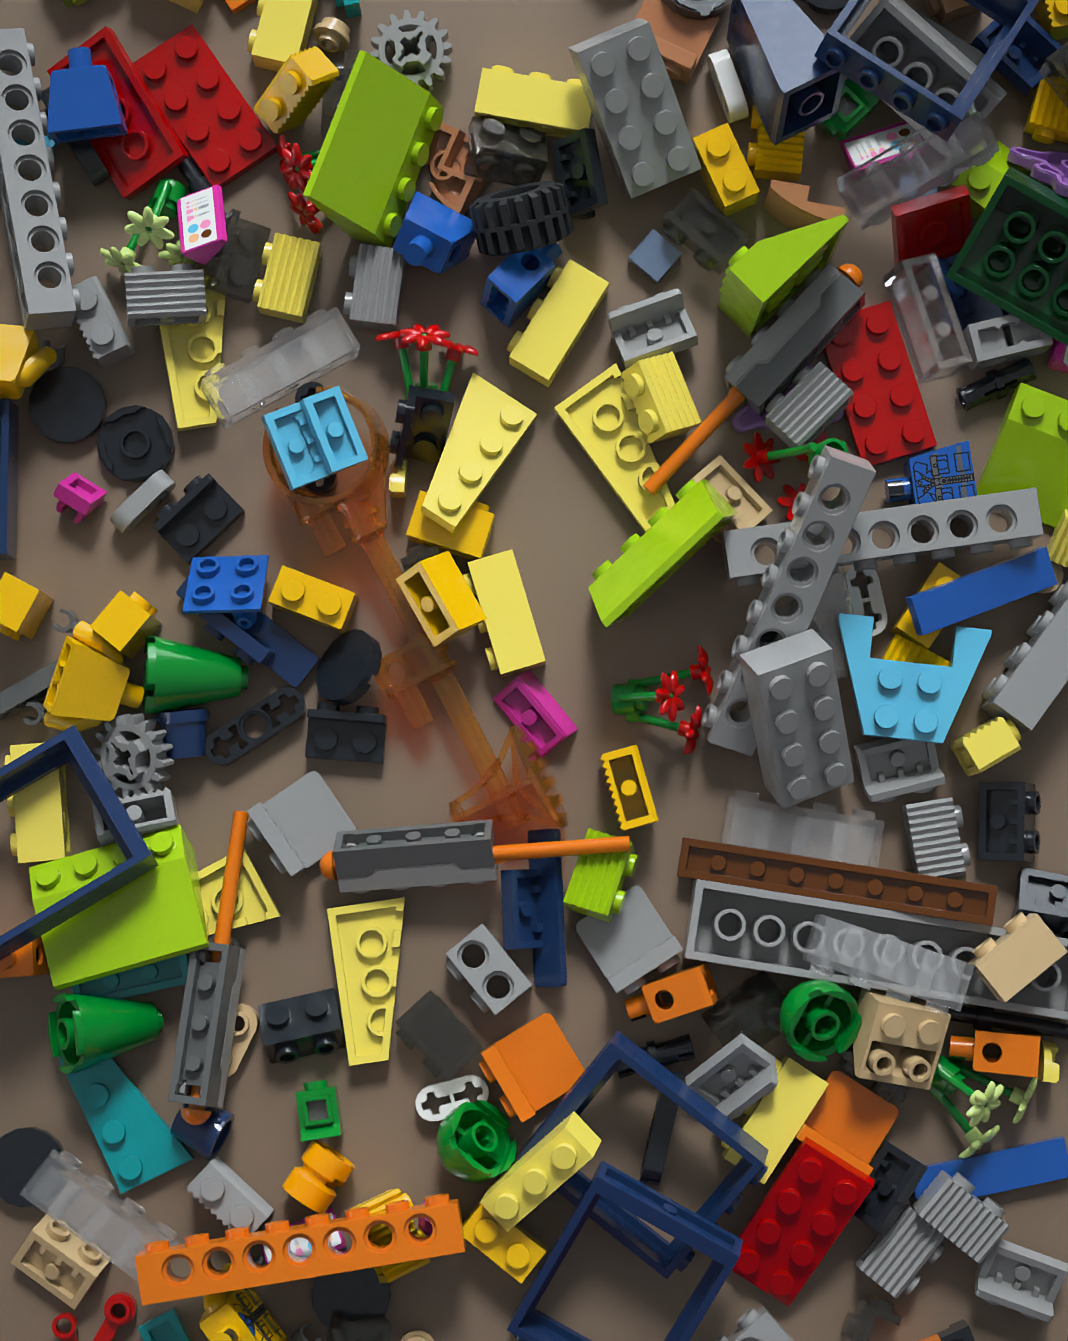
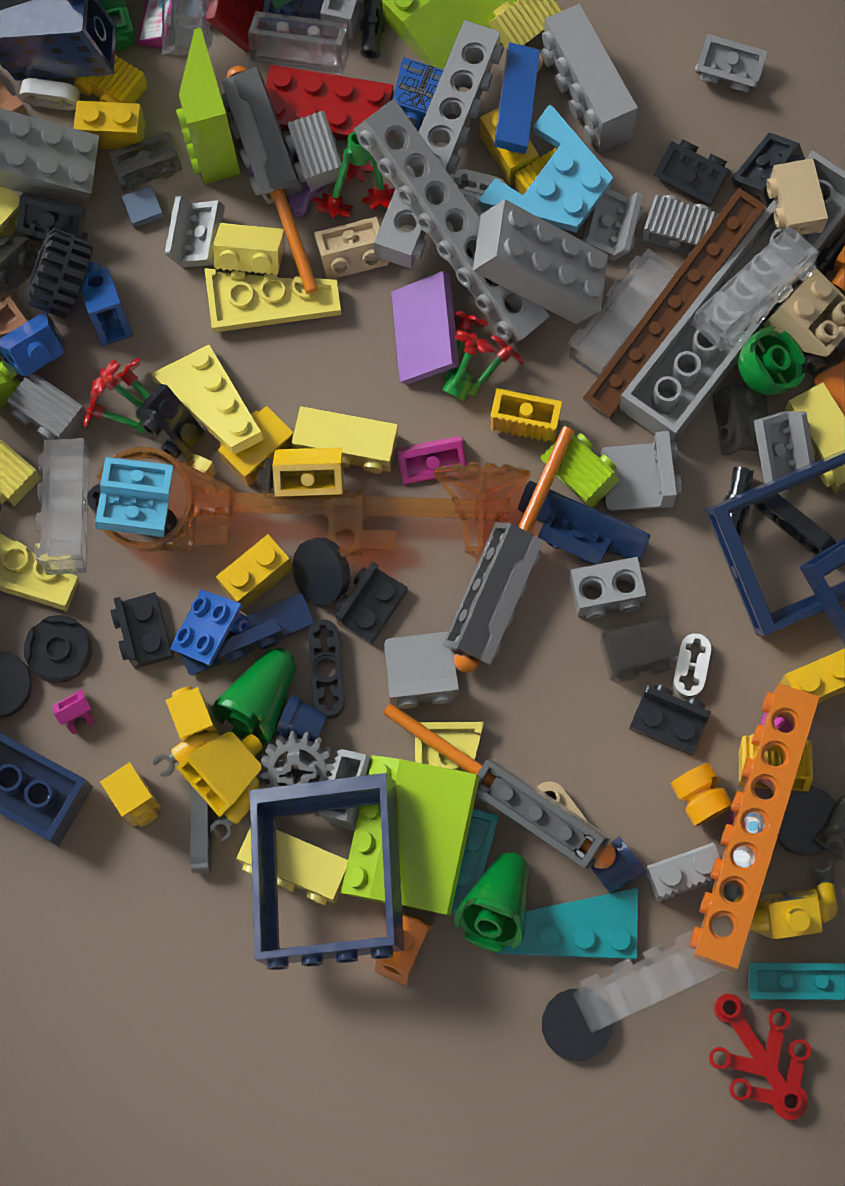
camera: 55 degrees left, 10 degrees down
(59, 1261) = (666, 1034): tan bracket -> none
(142, 502) = (105, 663): light grey beam -> none
(301, 1026) = (578, 750): black bracket -> none
(319, 1110) = (650, 770): green window -> none
(366, 967) = (553, 676): light yellow wing -> none
(382, 1103) = (670, 719): none -> black bracket
(475, 1142) = (736, 662): green cylinder -> none
(531, 1066) = (699, 593): orange bracket -> none
(541, 1171) = (784, 615): light yellow brick -> none
(557, 322) = (150, 295): light yellow brick -> none
(660, 552) = (362, 297): lime slope -> none
(670, 631) = (424, 328): none -> medium lavender tile
(691, 990) = (701, 446): orange torso -> none
(790, 206) = (162, 86): nougat slope -> none
(986, 745) = (630, 153): light yellow brick -> none

